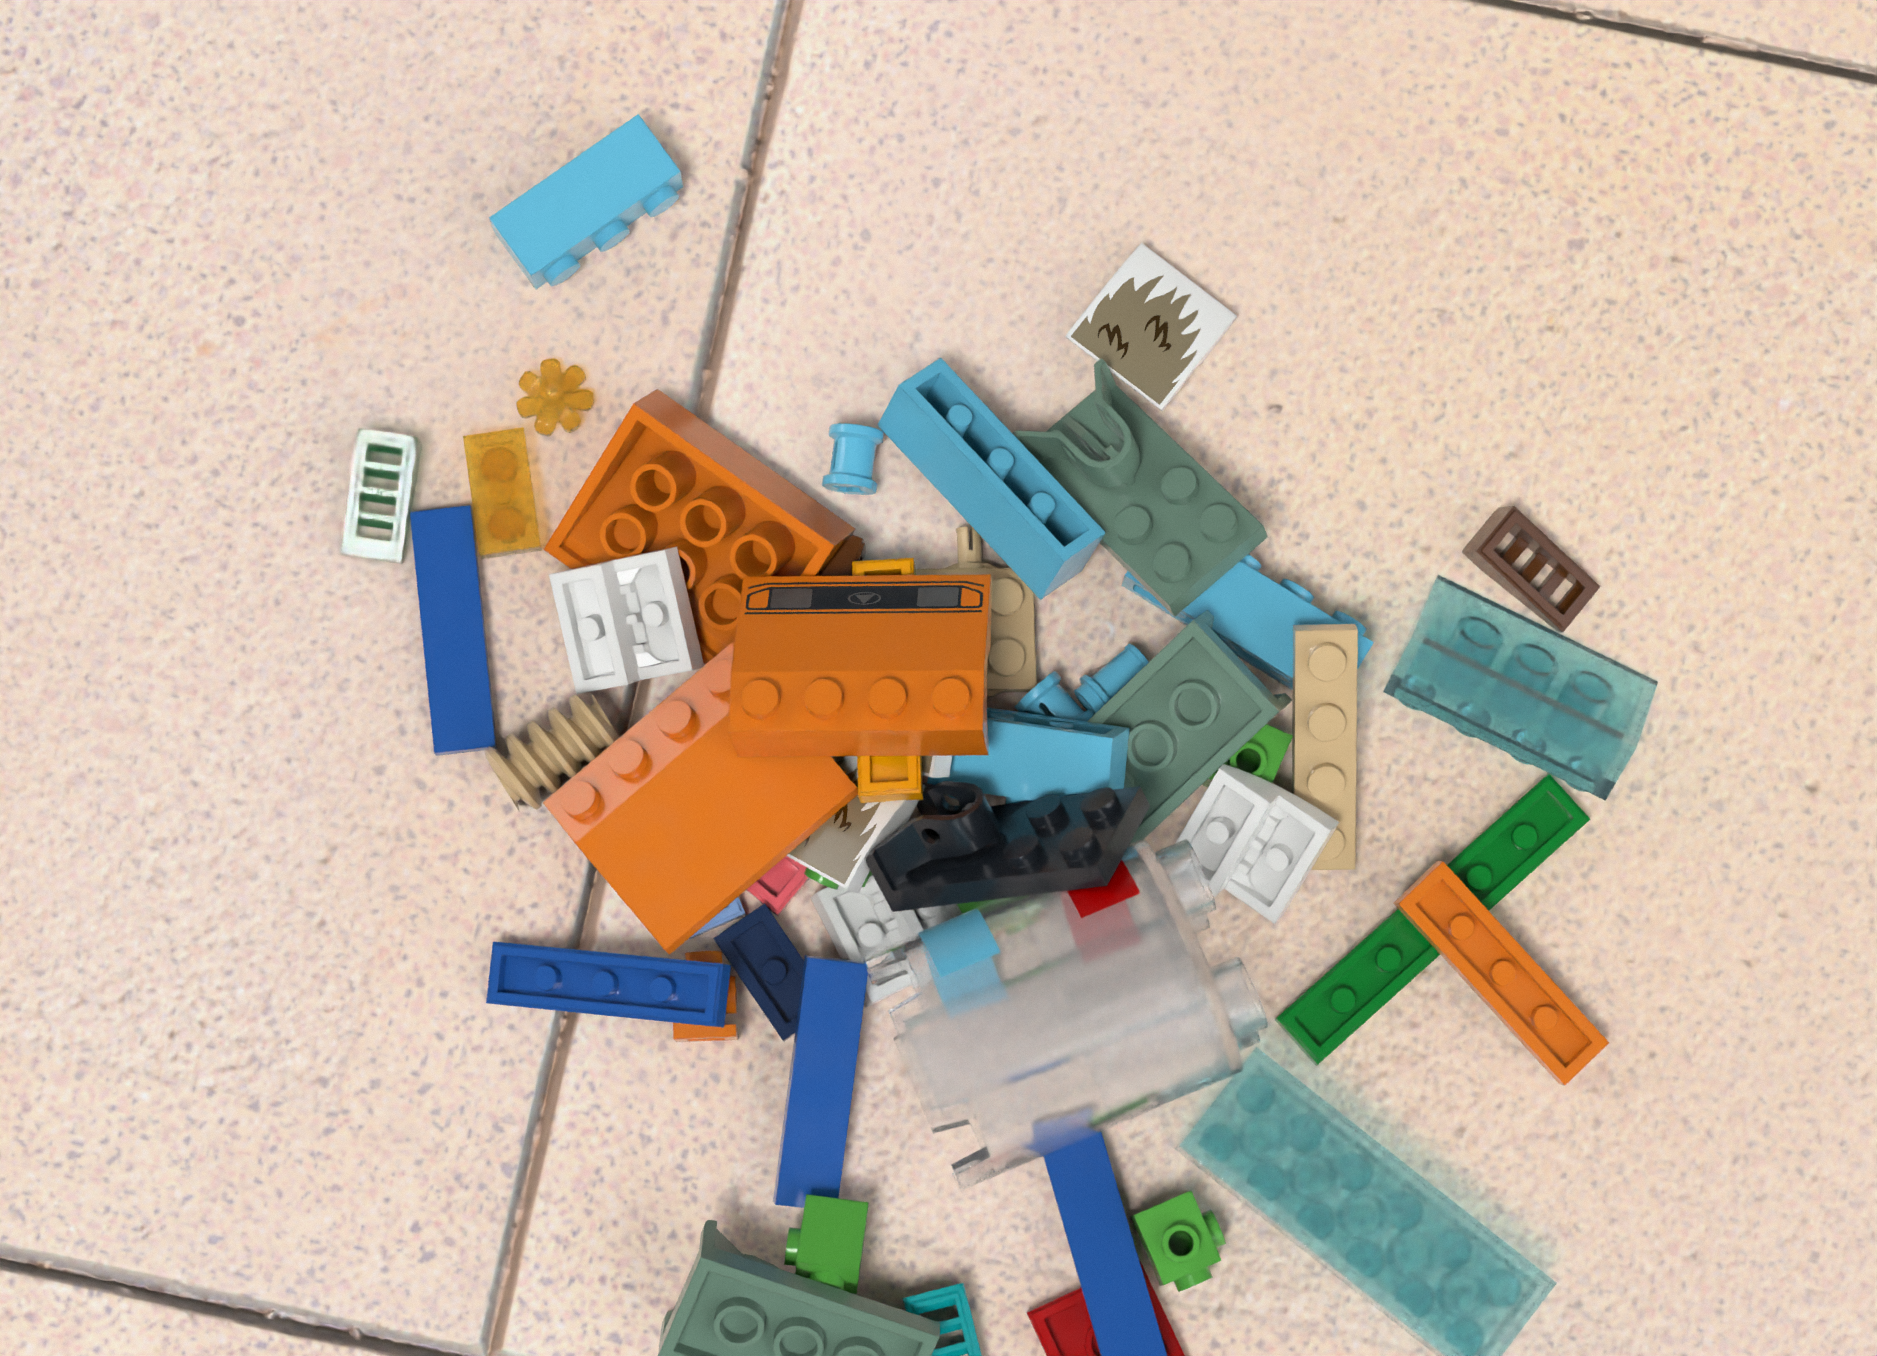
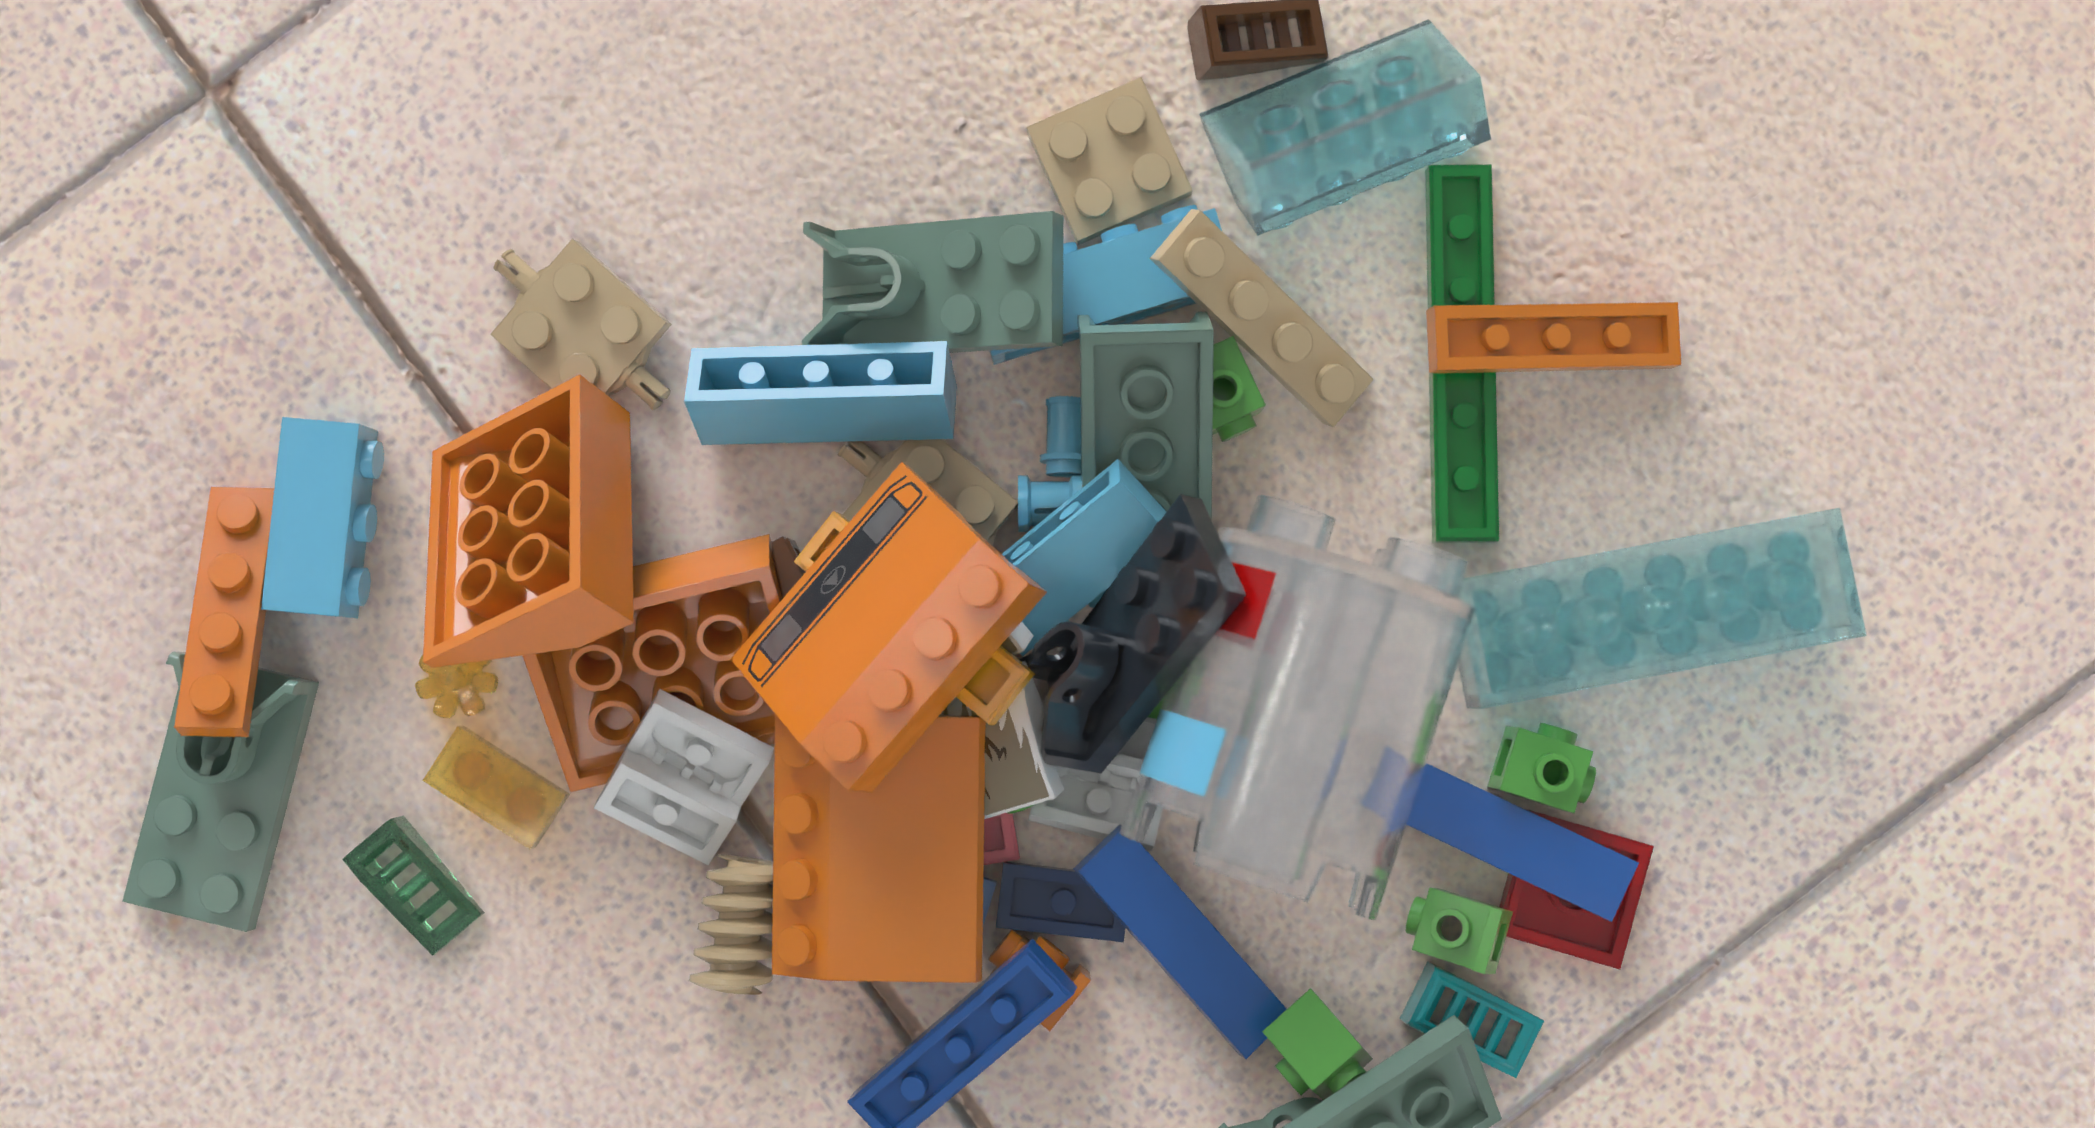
camera: 45 degrees left, 5 degrees up
(329, 300) = (221, 809): none -> sand green plate
(453, 630) = (572, 919): blue tile -> none
(466, 196) = (226, 616): none -> orange plate
(713, 356) = (531, 530): none -> orange slope
(852, 459) = (711, 487): medium azure bush -> none
(884, 267) = (581, 322): none -> tan plate
(1011, 1297) = (1482, 929): none -> bright green brick
(1151, 326) = (811, 162): slope -> none
(1256, 839) = (1287, 437): white slope -> none
(1344, 539) = (1109, 161): none -> tan plate

